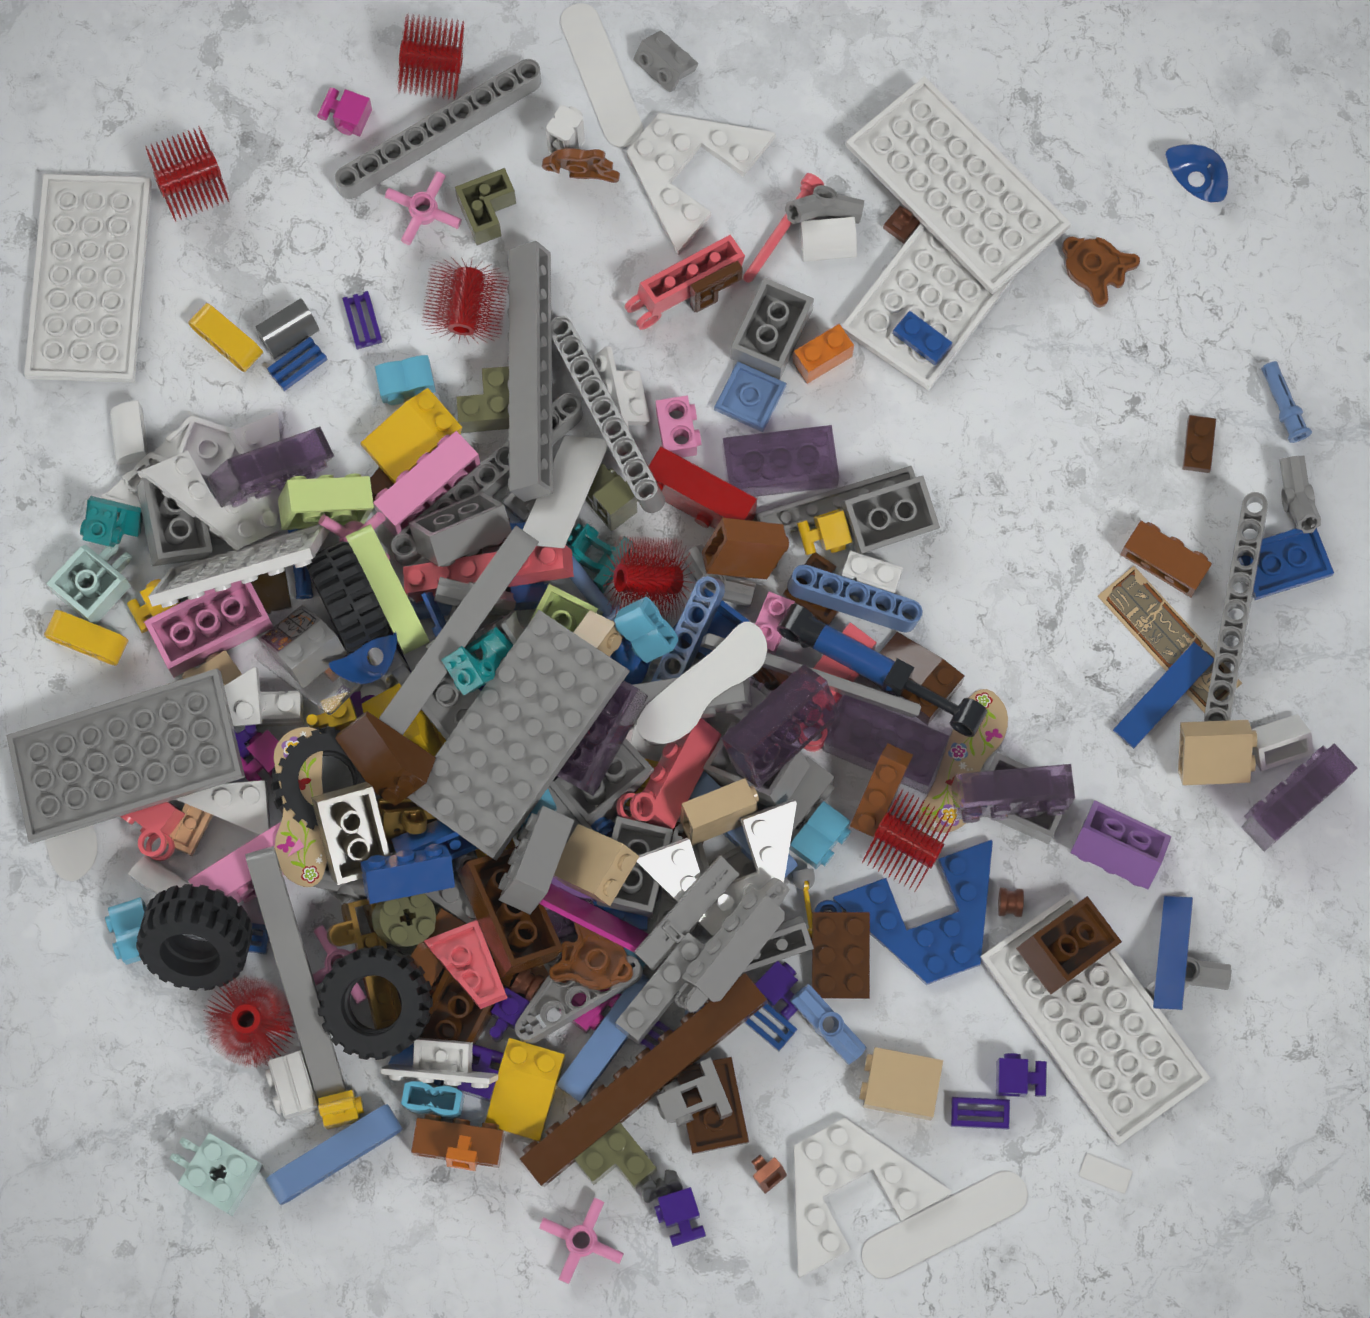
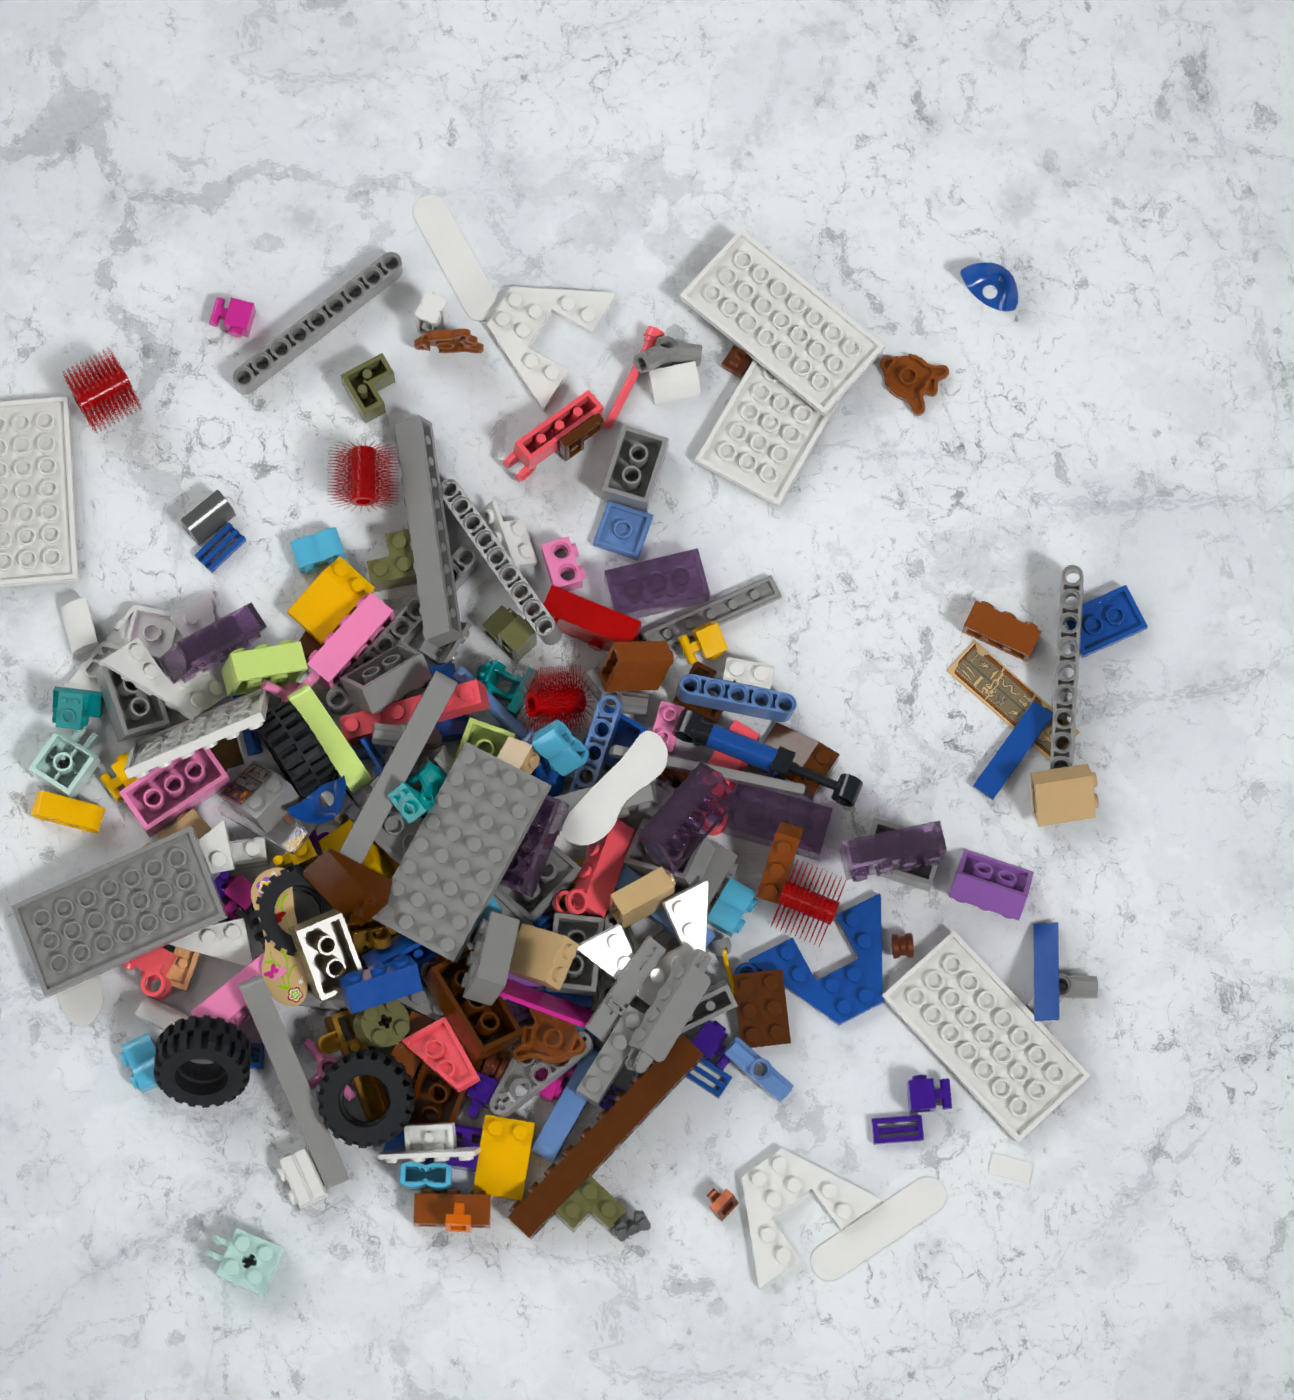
camera: 10 degrees left, 0 degrees up
(225, 337) = (154, 531): yellow beam -> none
(239, 1017) = (259, 1141): red piece -> none
(334, 1154) = (346, 1233): medium blue beam -> none
(340, 1109) = (347, 1194): yellow brick -> none
(356, 300) = (265, 484): dark purple tile -> none
(423, 217) = (313, 387): bright pink bar -> none
(430, 56) = (303, 261): red piece -> none
(573, 475) = (478, 617): white sticker -> none
(576, 1253) = (567, 1291): bright pink bar -> none
(664, 60) = (510, 238): light grey bracket -> none
(672, 1105) = (634, 1155): light grey tile -> none
(678, 1210) = (650, 1244): dark purple brick -> none
(707, 1130) = (667, 1152): reddish brown plate -> none
(823, 353) = (682, 485): orange brick -> none
(890, 514) = (758, 621): light grey brick -> none
(901, 1083) = (827, 1112): tan brick -> none
(922, 338) = (767, 461): blue plate -> none
(965, 756) = (848, 824): tan sticker -> none
(1068, 945) = (956, 976): reddish brown slope -> none
(1199, 444) = (1018, 526): reddish brown plate -> none
(1282, 742) = (1119, 779): white brick -> none
(1289, 413) = (1094, 490): medium blue pin -> none
(1298, 494) = (1109, 561): light grey piece -> none
(1302, 793) = (1142, 820): clear purple brick -> none

